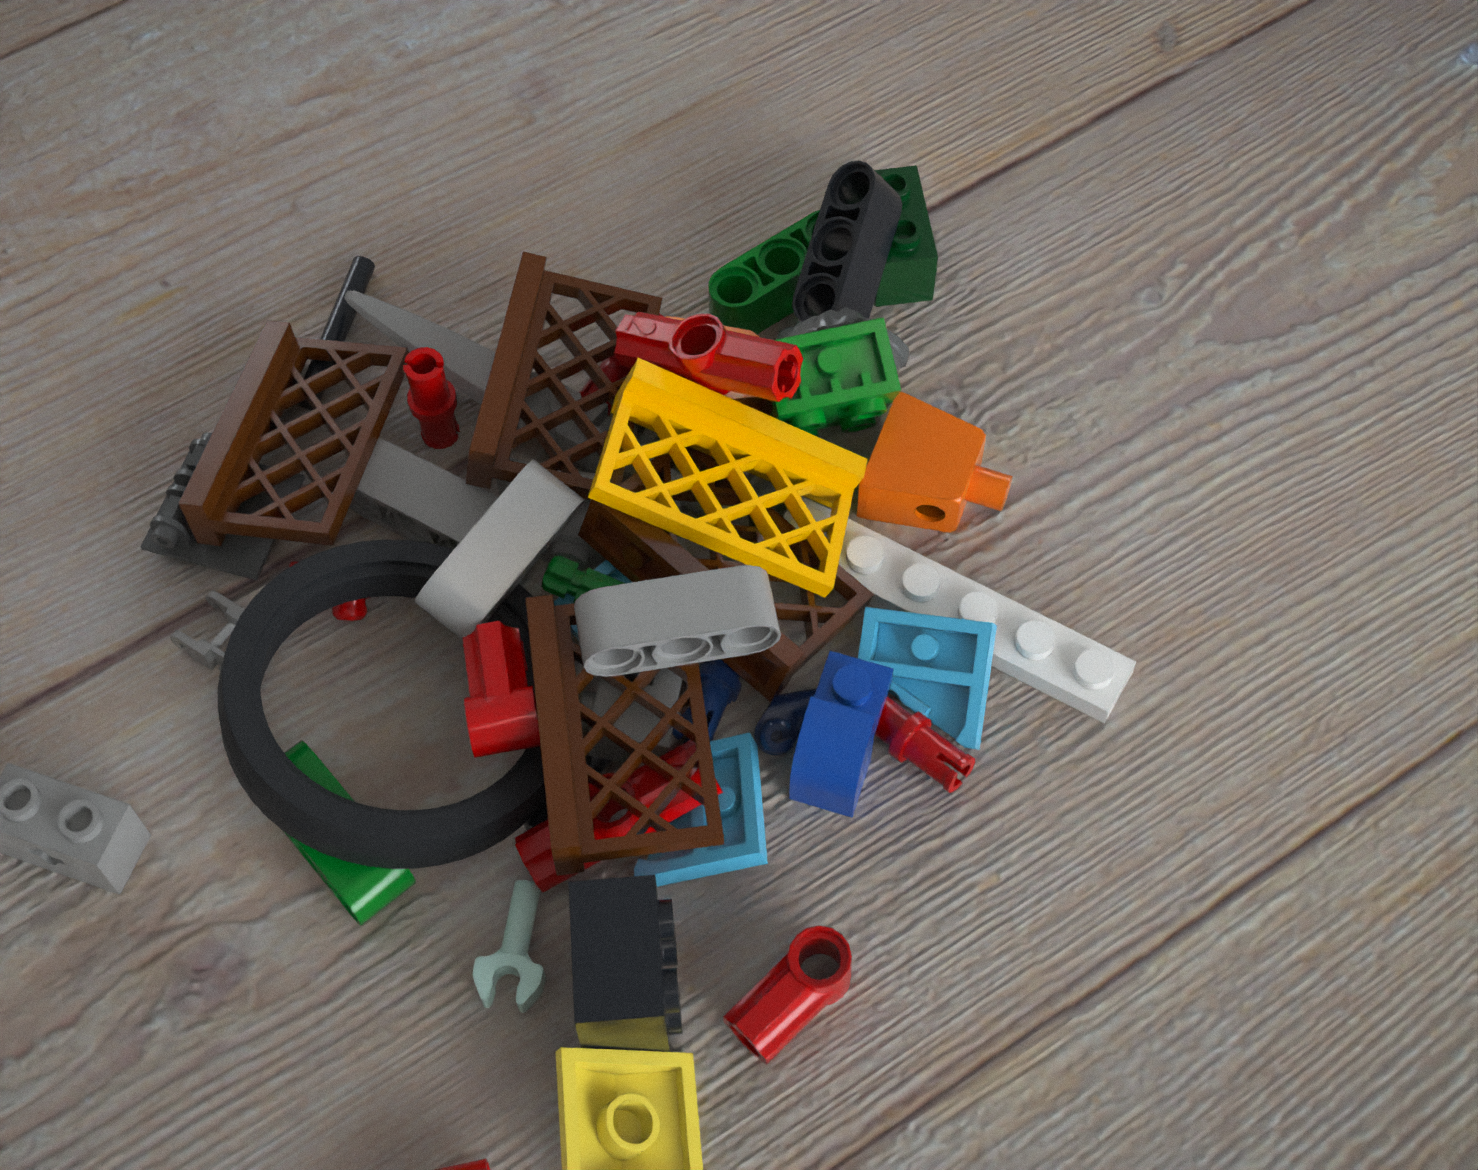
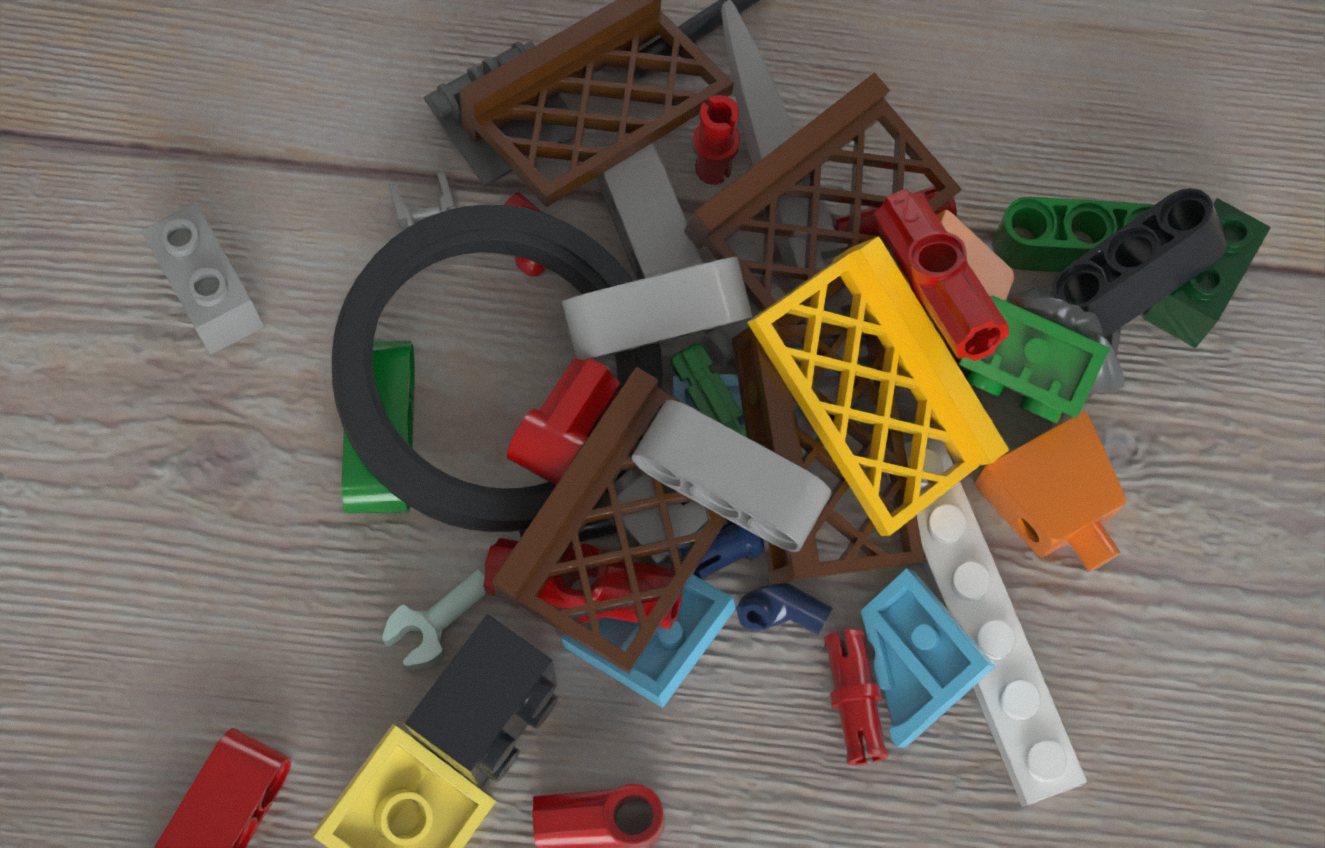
camera: 35 degrees right, 10 degrees up
(839, 734) = (800, 650): blue brick -> none

